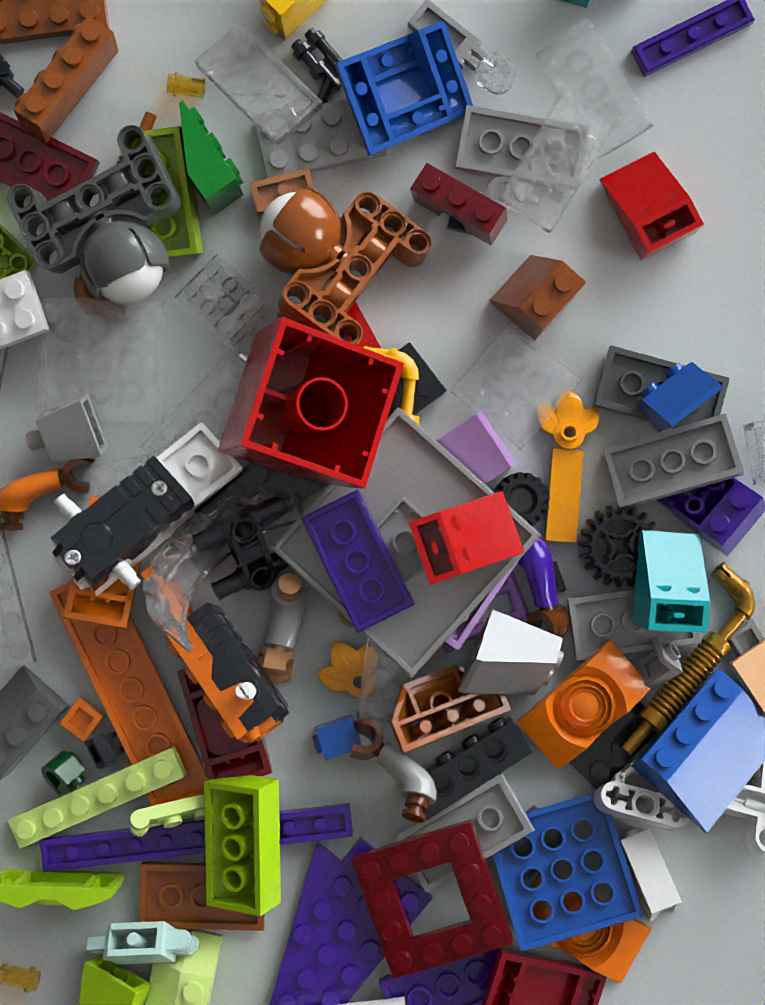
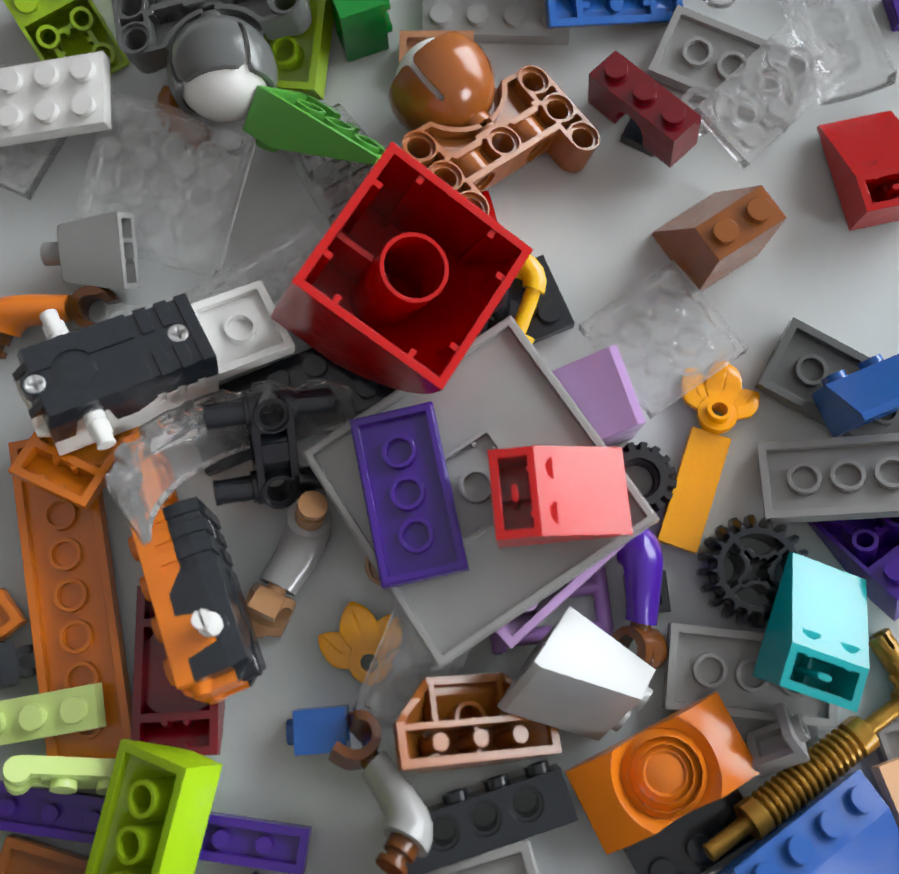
camera: 10 degrees right, 10 degrees down
(202, 292) = (306, 126): none -> bright green wedge

